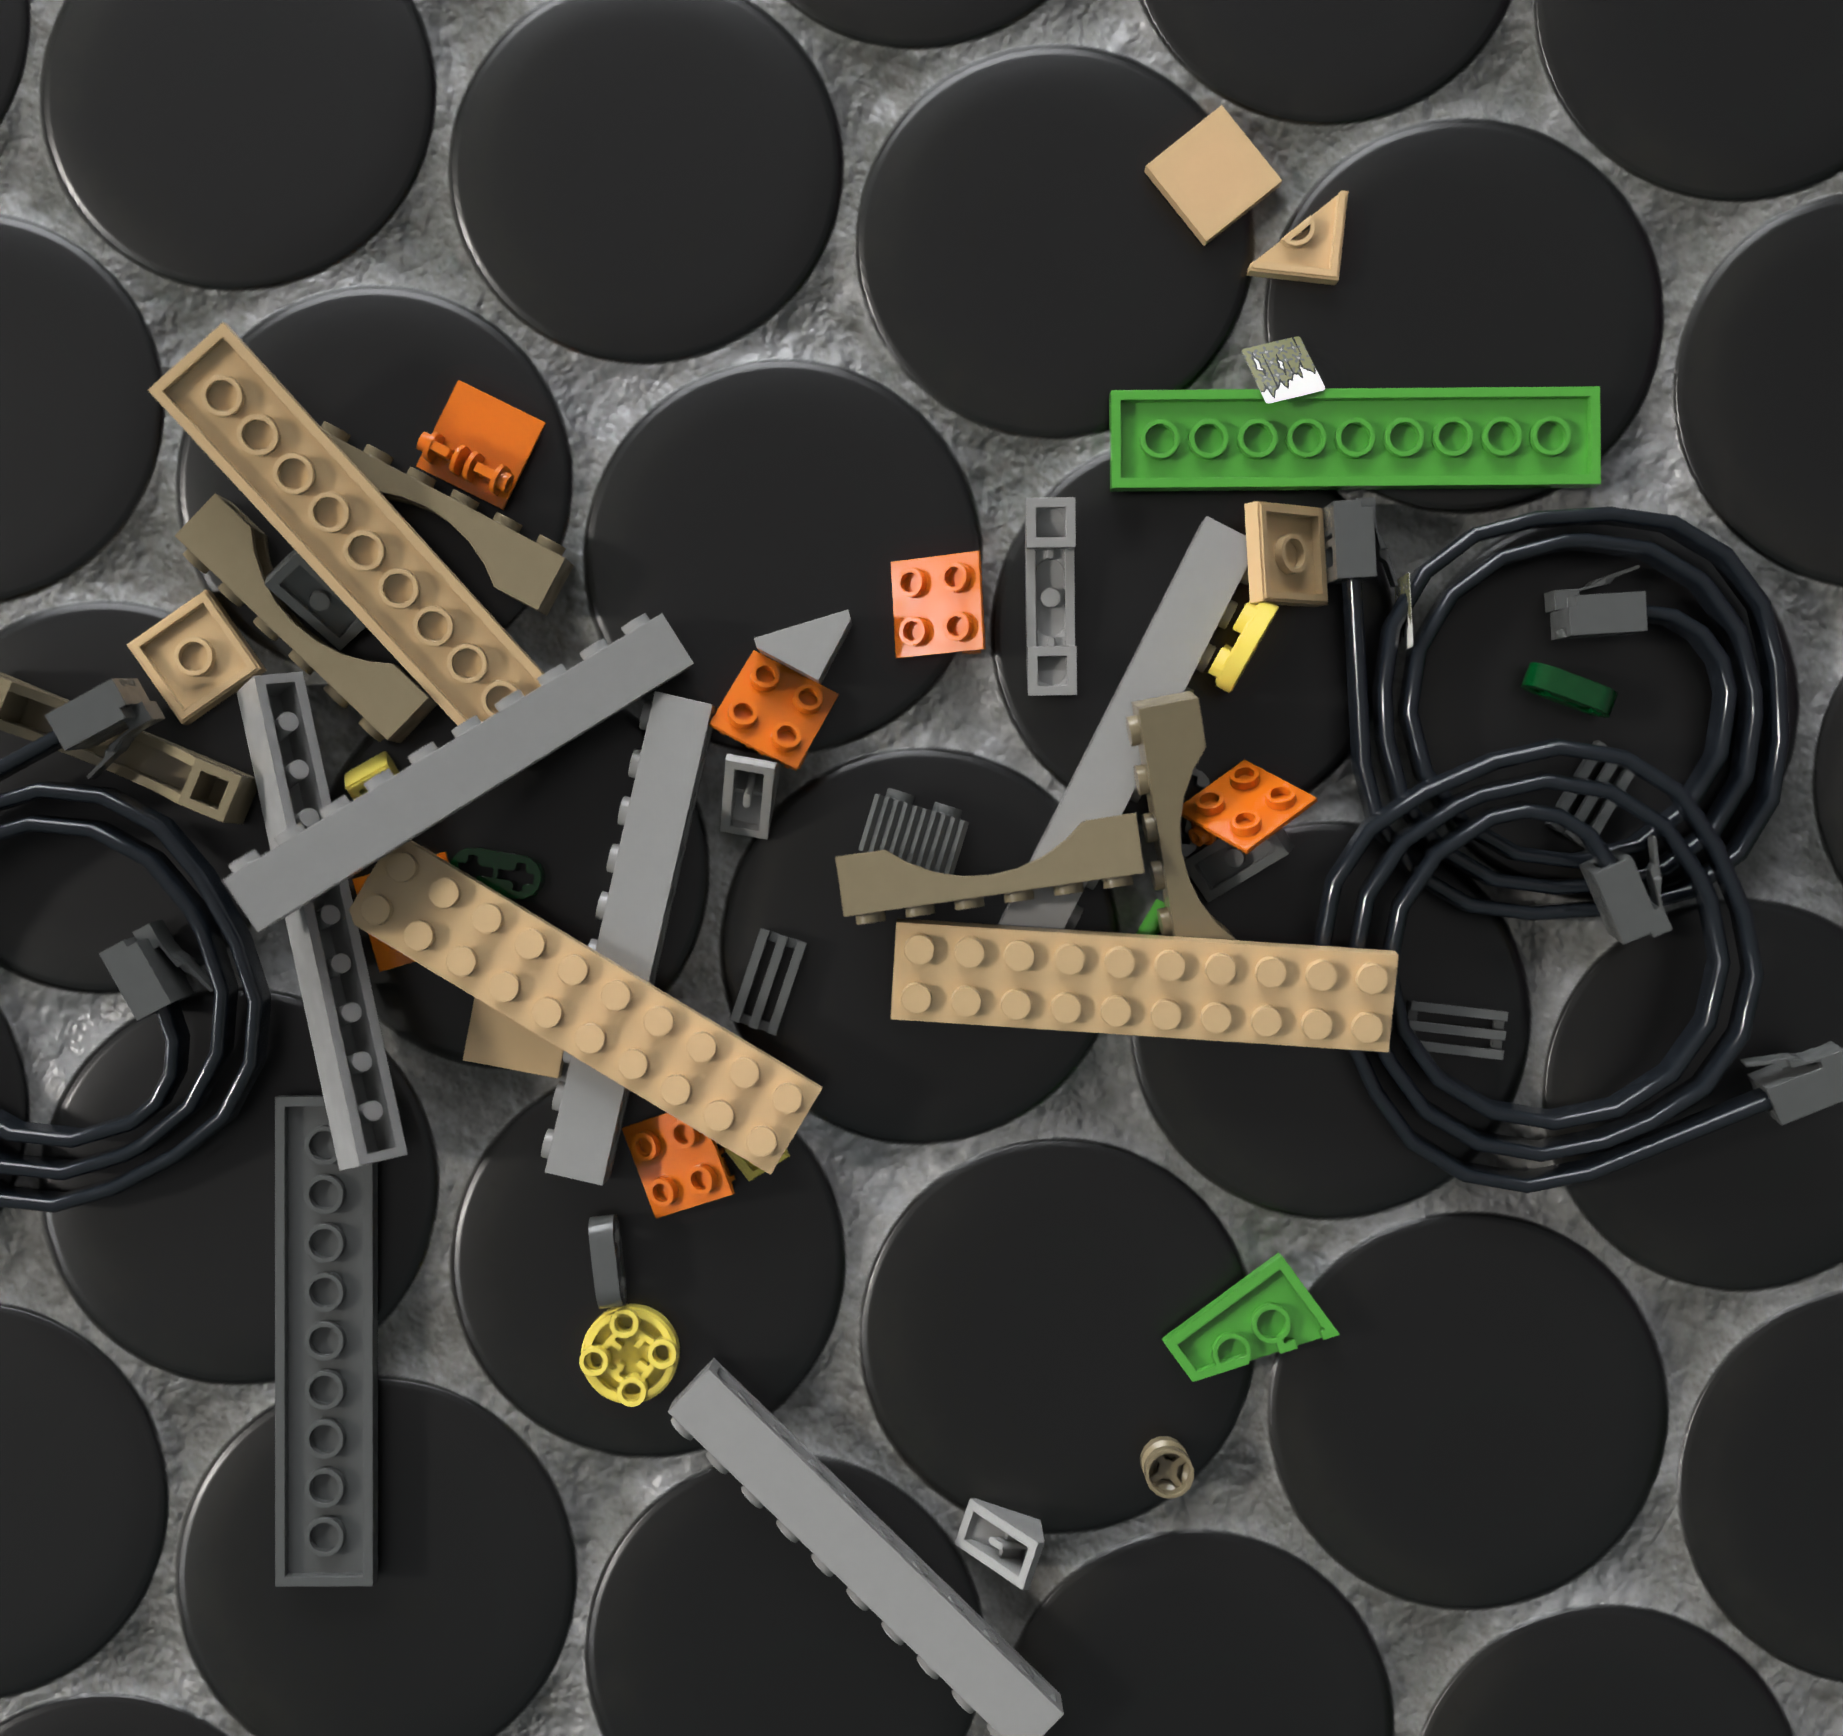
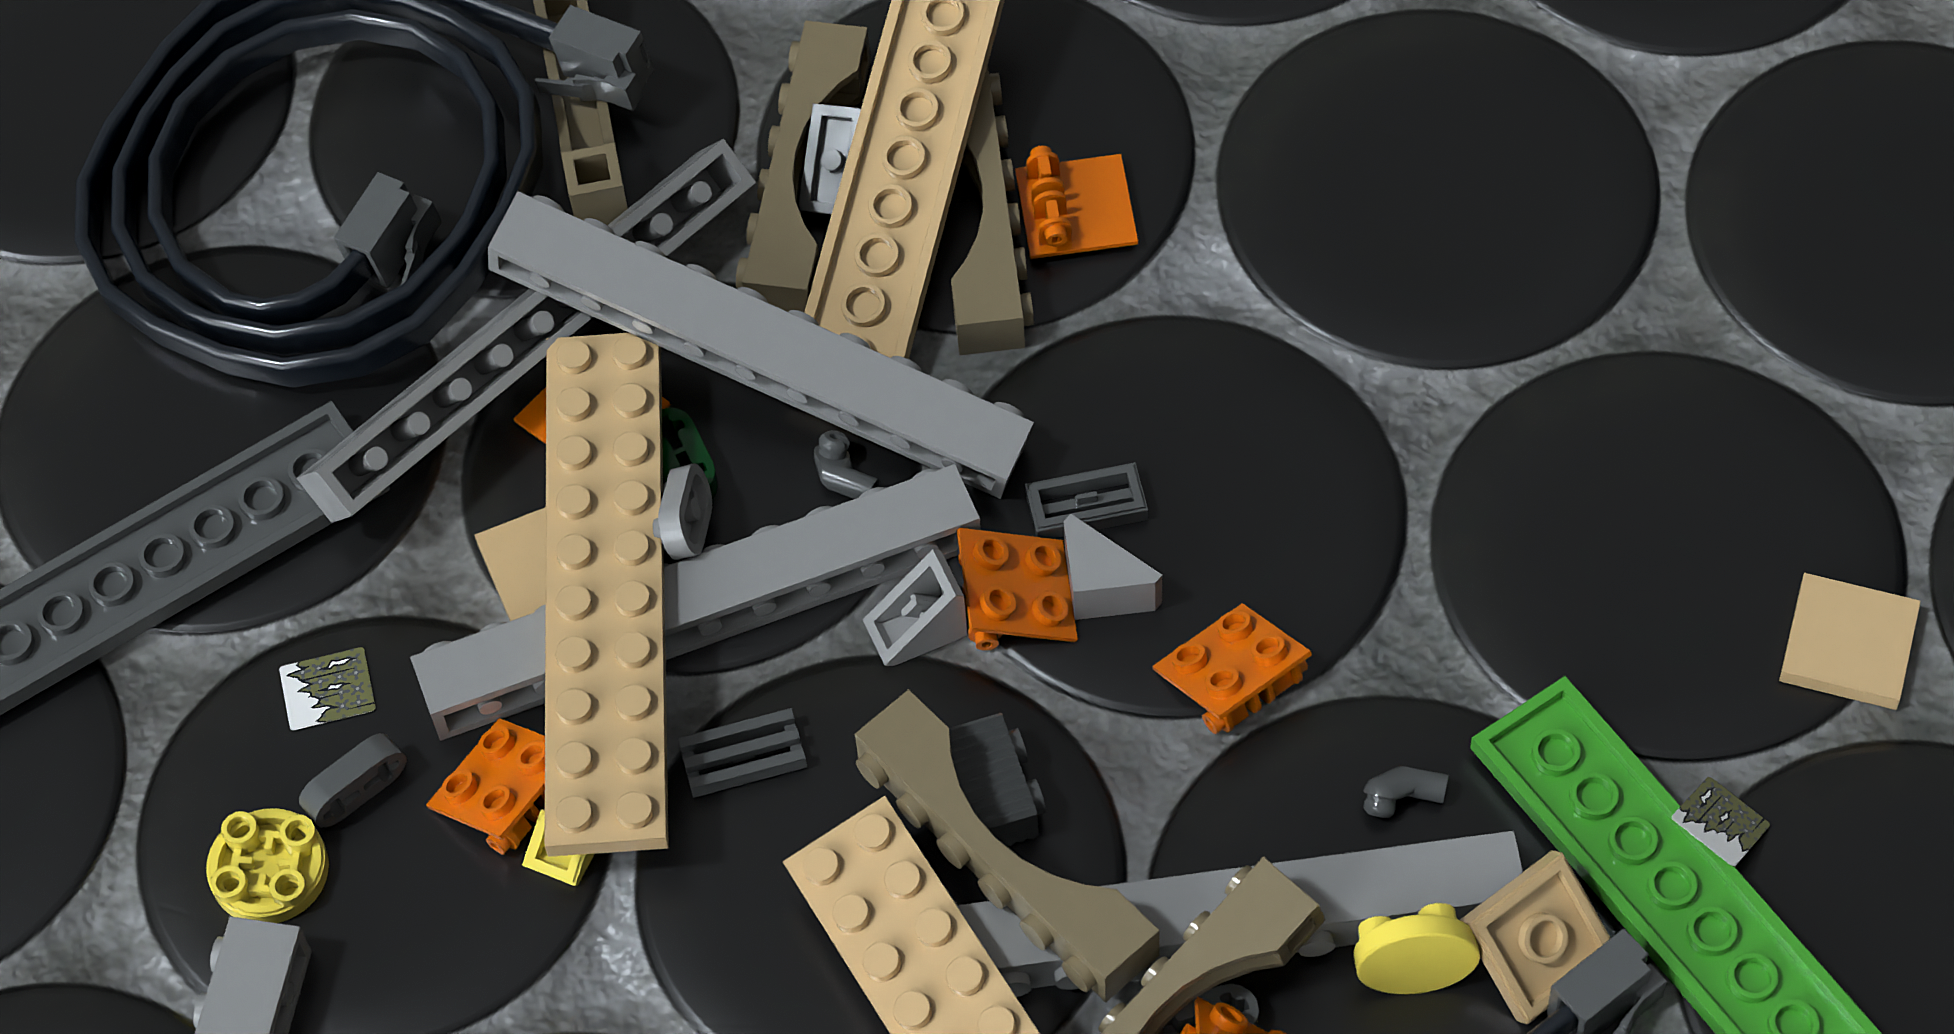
camera: 60 degrees right, 30 degrees down
(196, 657) = (704, 105): tan tile -> none
(513, 1231) = (327, 688): none -> sticker
(561, 909) = (684, 512): none -> light grey plate
(589, 770) = (836, 467): none -> dark grey arm
(752, 574) = (1094, 509): none -> dark grey tile
(1050, 596) = (1324, 757): light grey slope -> none
(1105, 559) = (1401, 782): none -> dark grey arm
(1309, 250) = (1860, 774): tan tile -> none

